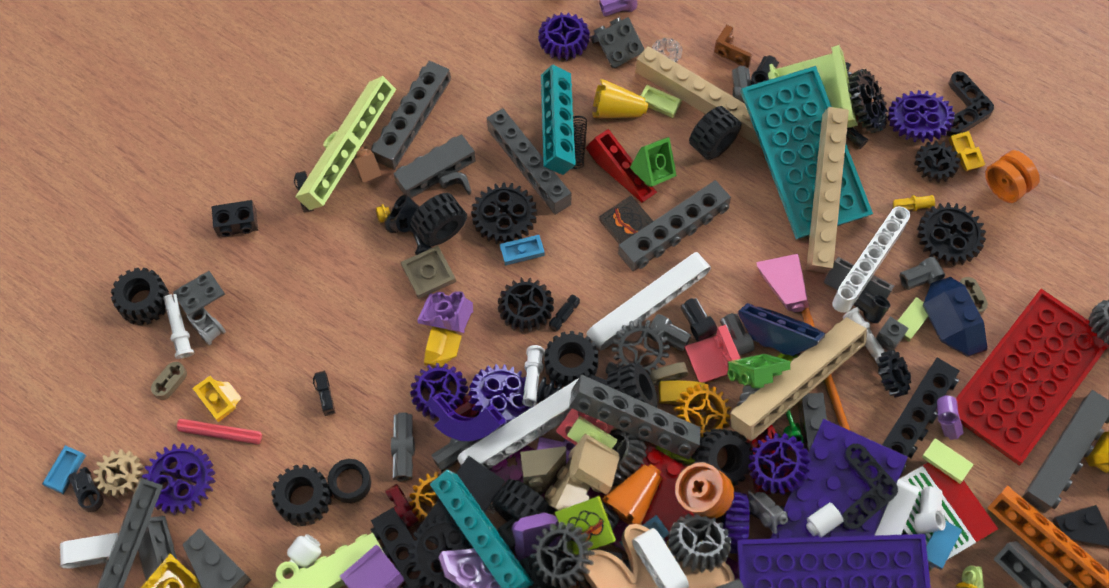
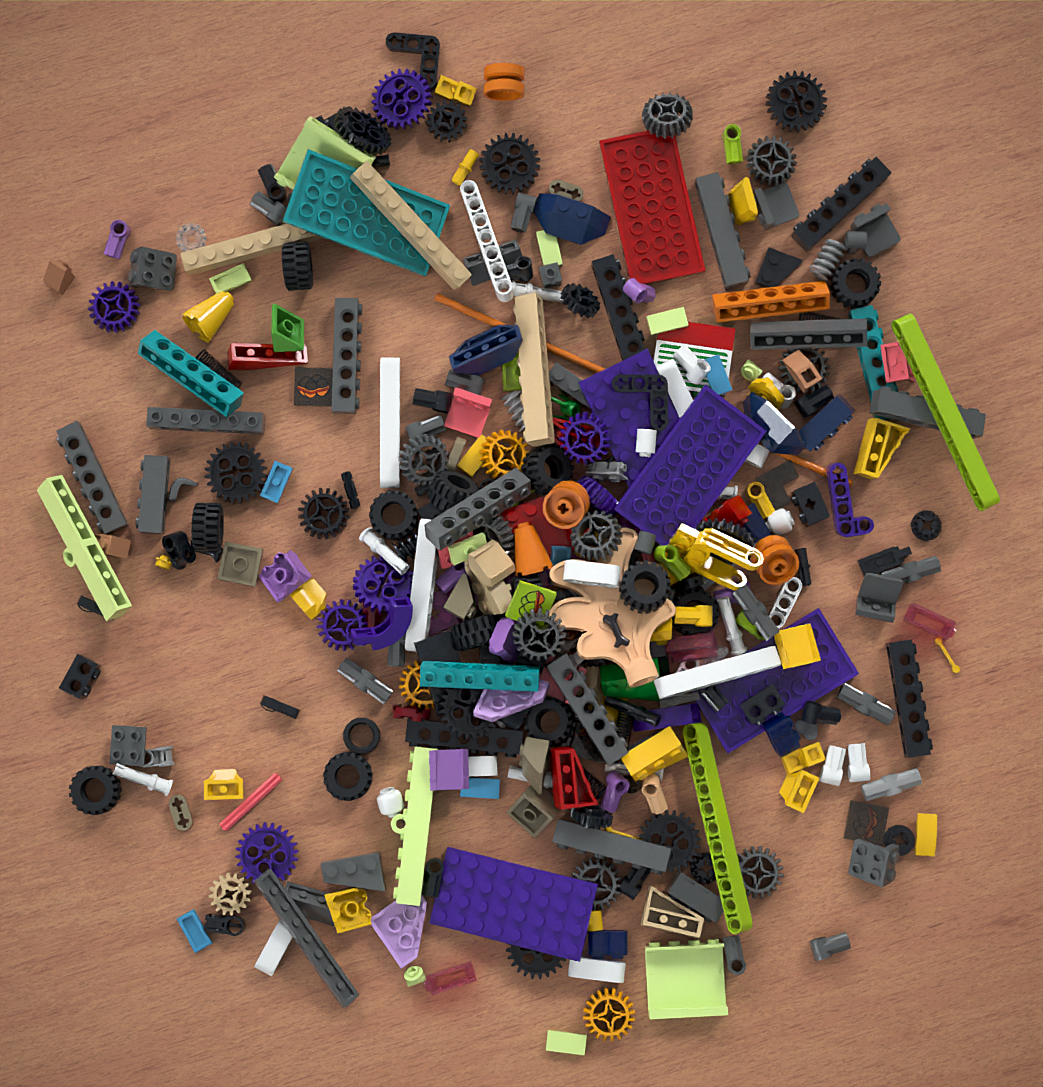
camera: 60 degrees left, 20 degrees up
(725, 49) = (227, 194): dark orange bracket -> none
(757, 369) = (507, 395): bright green plate -> none
(786, 280) = (454, 314): bright pink slope -> none

